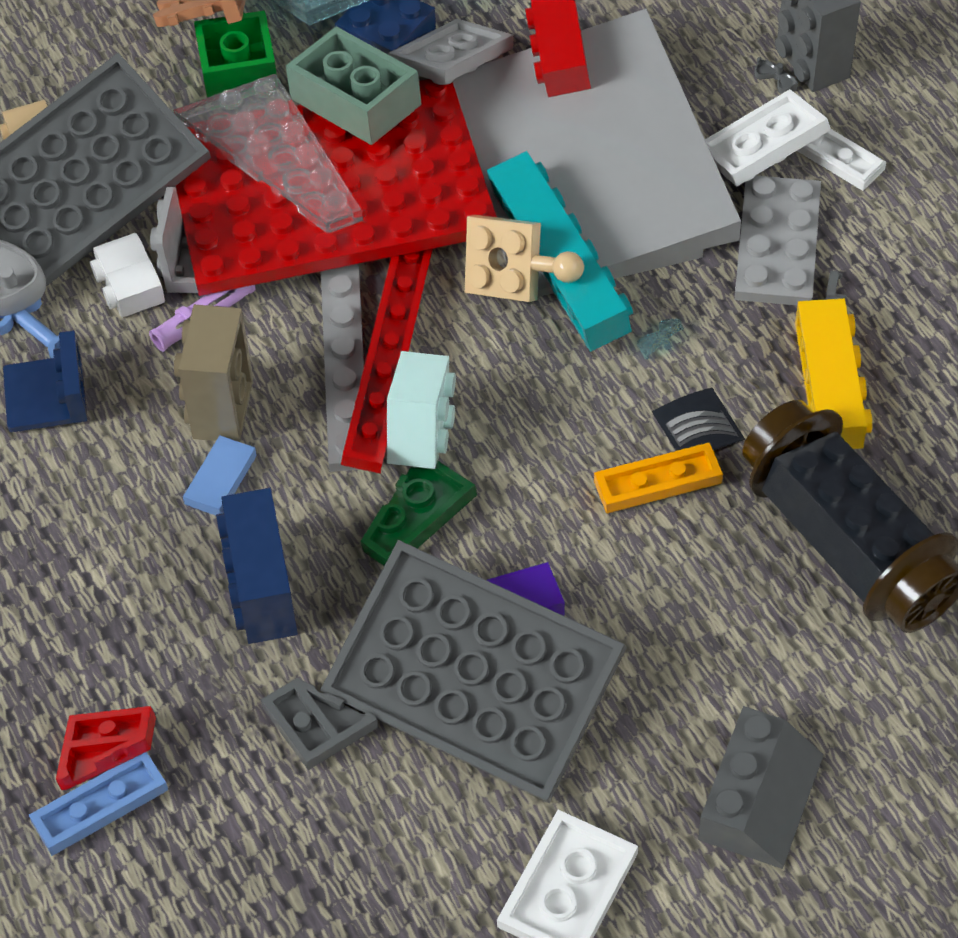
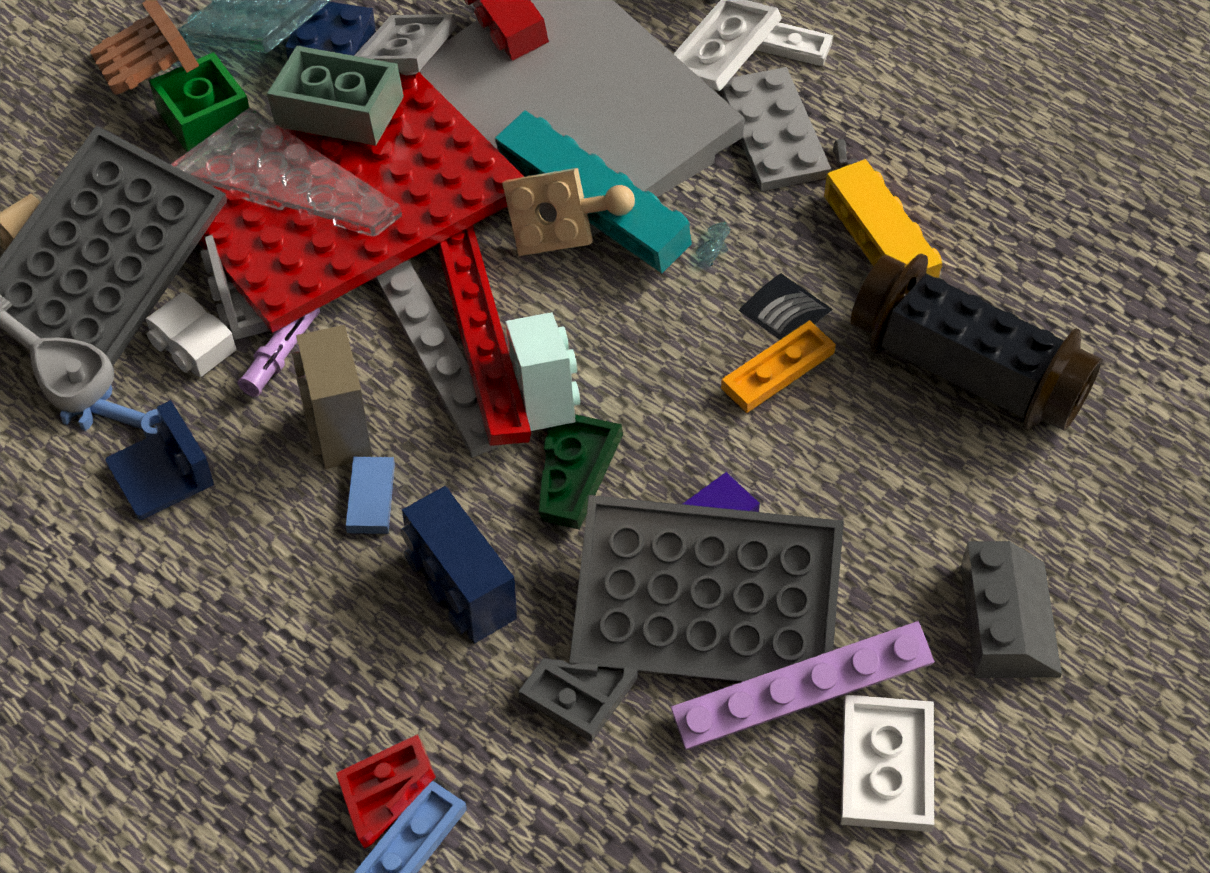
camera: 25 degrees left, 0 degrees up
(521, 786) = (802, 685): none -> lavender plate

